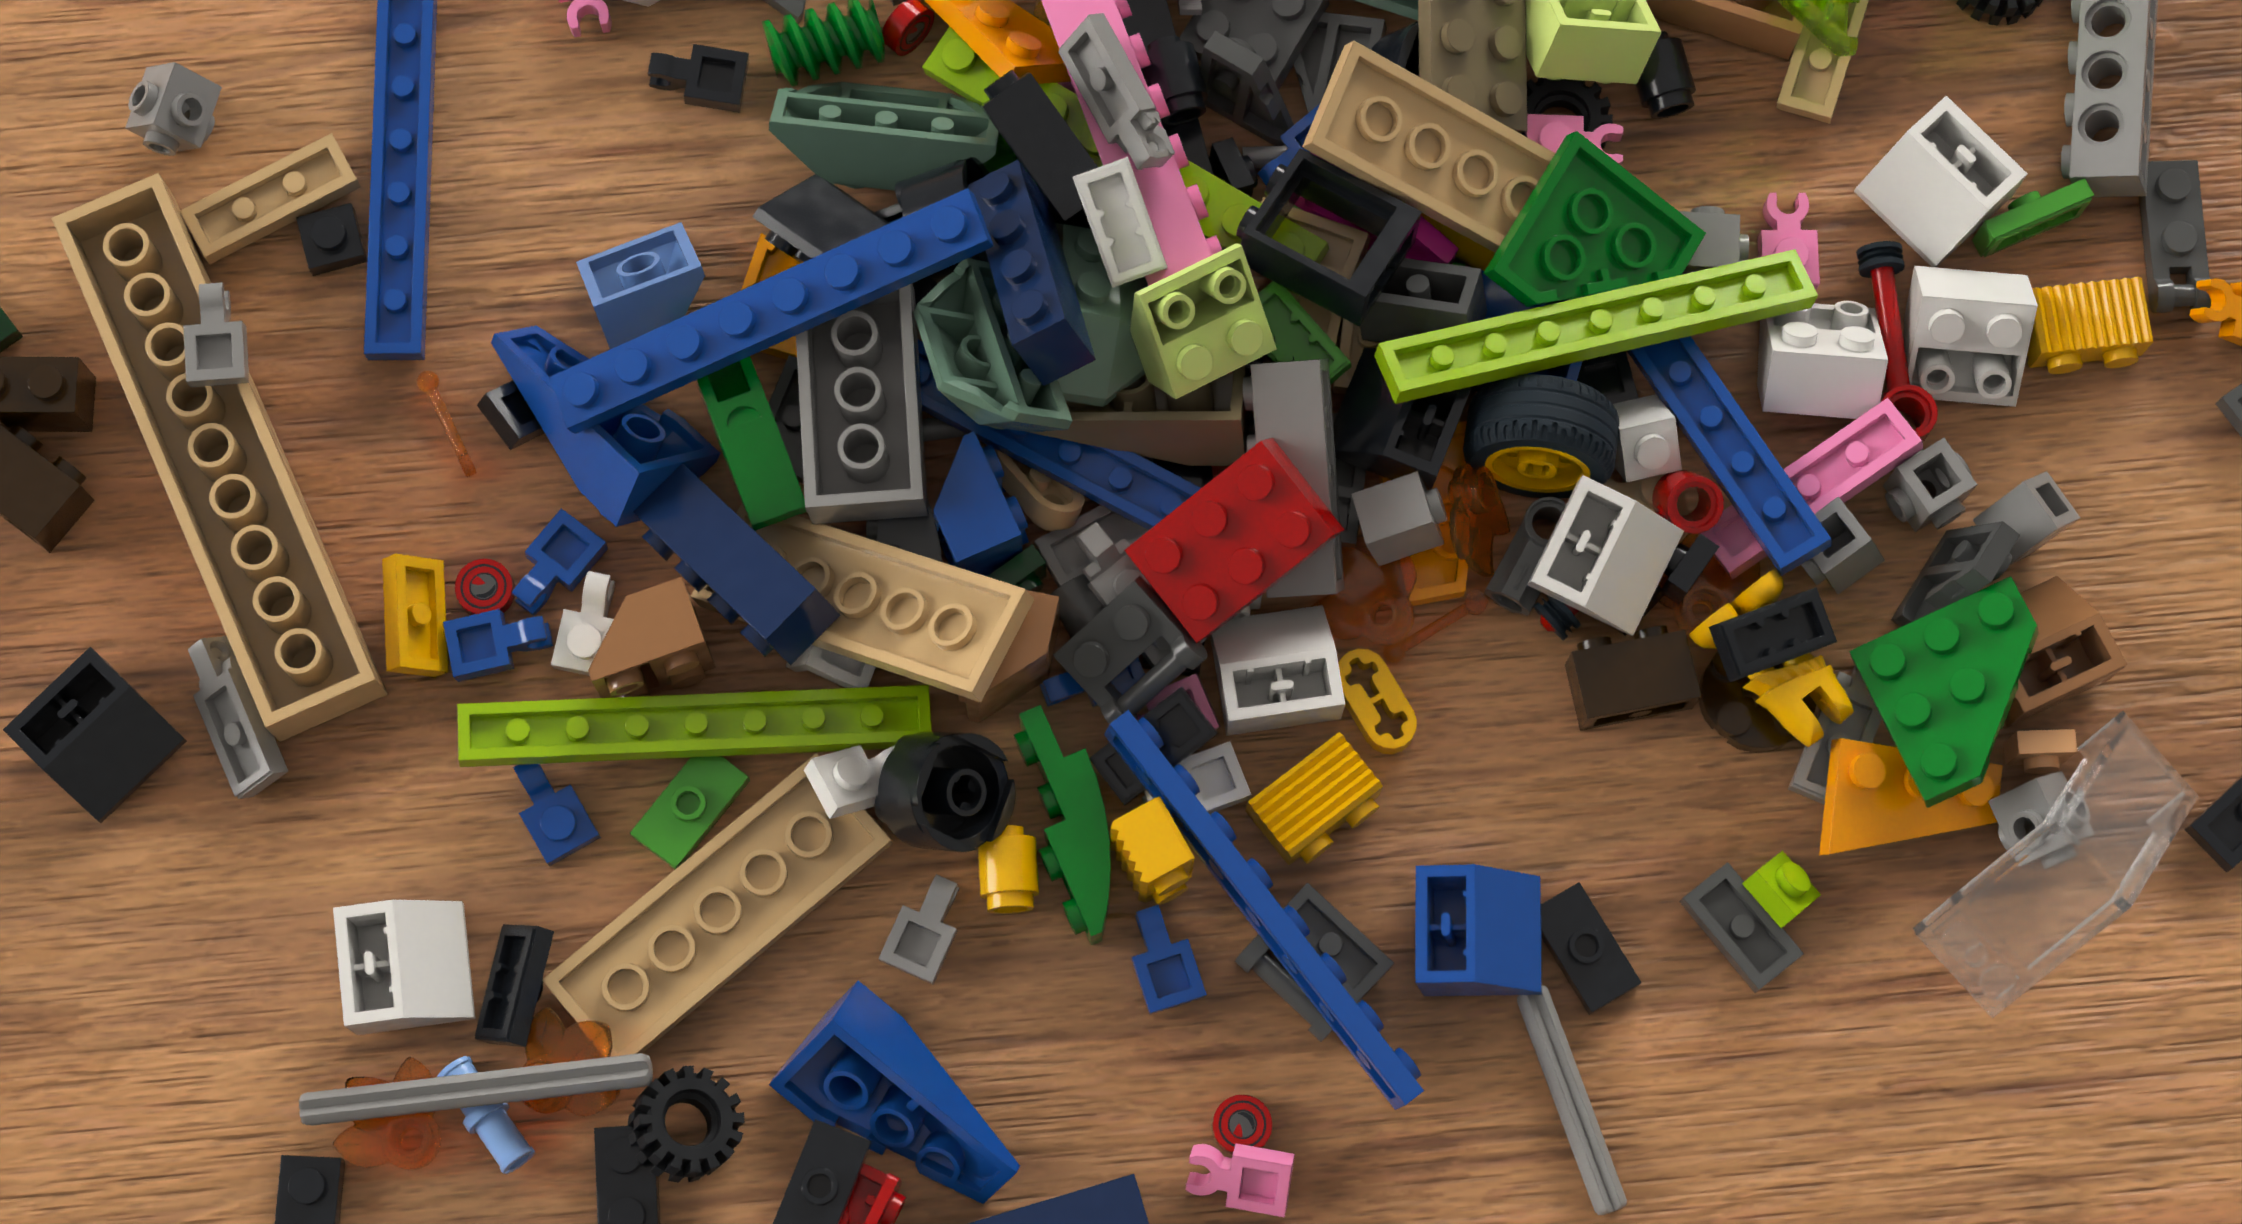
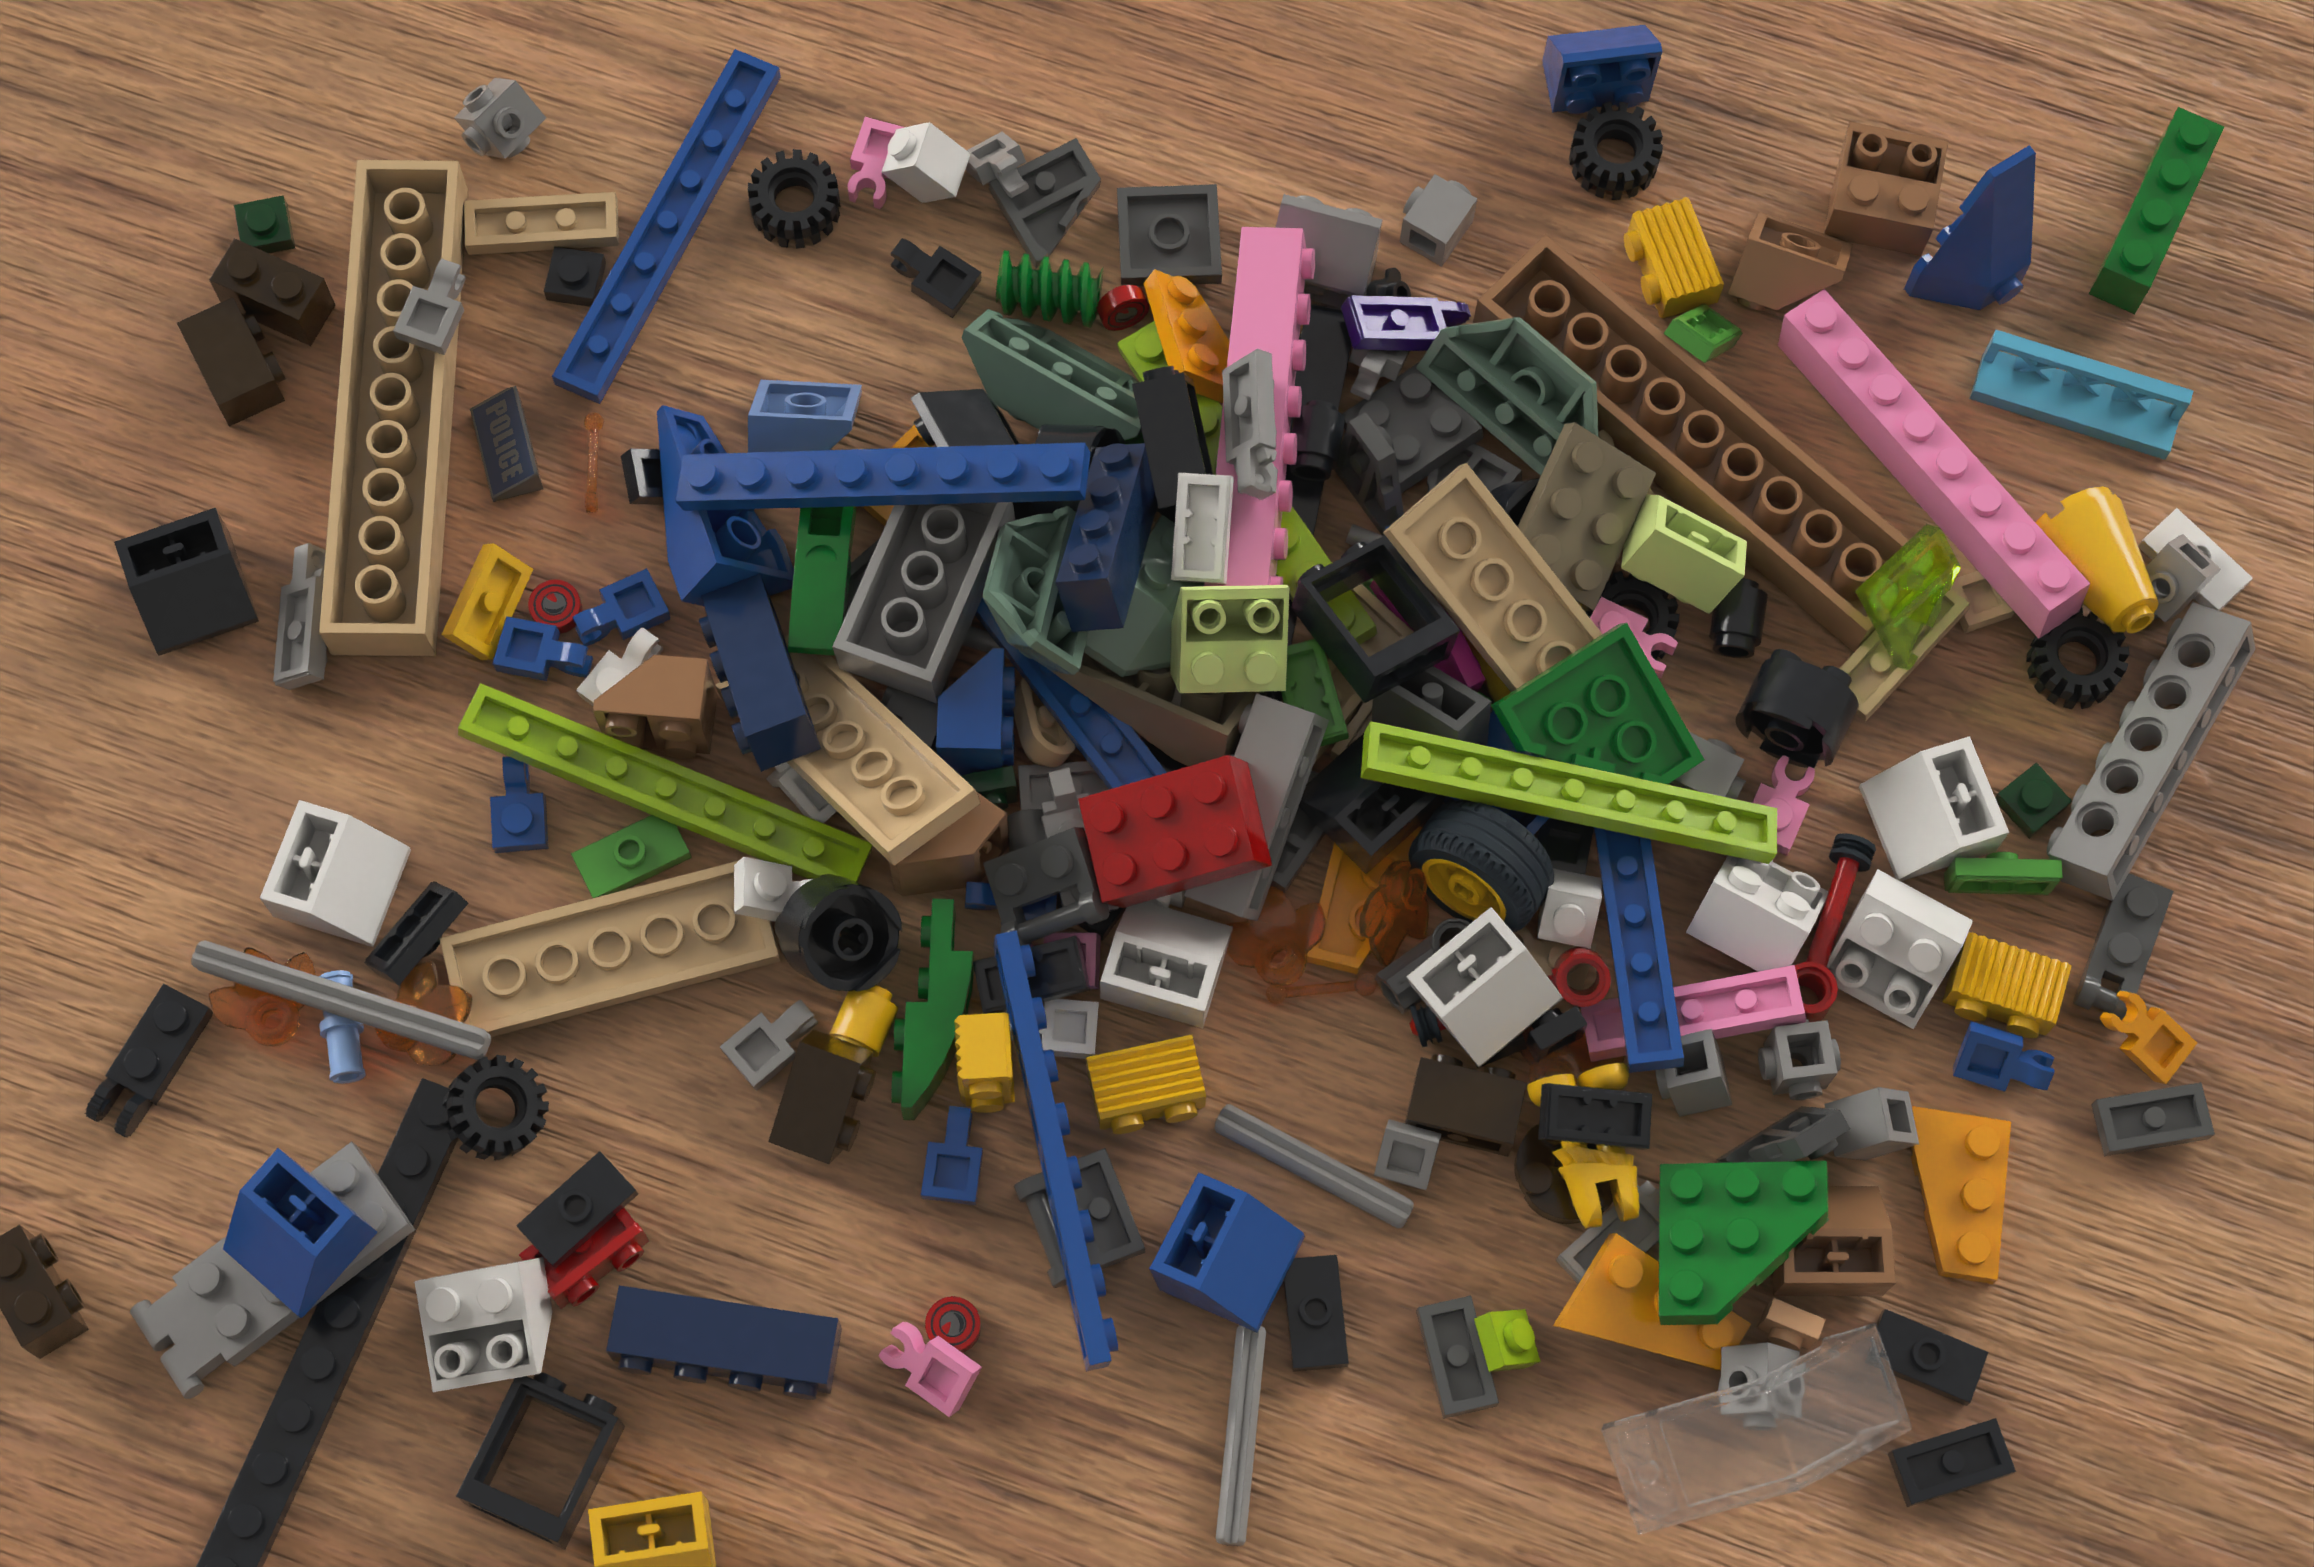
camera: 25 degrees right, 5 degrees down
(350, 445) = (506, 445): none -> slope
(513, 29) = (791, 173): none -> black tyre
(883, 1083) = (674, 1153): blue wedge -> none
(1008, 962) = (823, 1097): none -> dark brown brick
(1233, 167) = (1331, 533): black plate -> none
(1386, 693) = (1251, 1026): yellow beam -> none
(1400, 518) = (1326, 879): light grey brick -> none
(1513, 805) = (1314, 1166): none -> light grey axle
(1600, 752) = (1407, 1154): none -> light grey plate
(1768, 141) = (1798, 709): none -> black brick
(2024, 129) = (2032, 800): none -> dark green plate
(2109, 397) = (1996, 1056): none -> blue plate
(2136, 542) = (1963, 1189): none -> light orange wing
(2183, 717) = (1931, 1357): none -> black plate

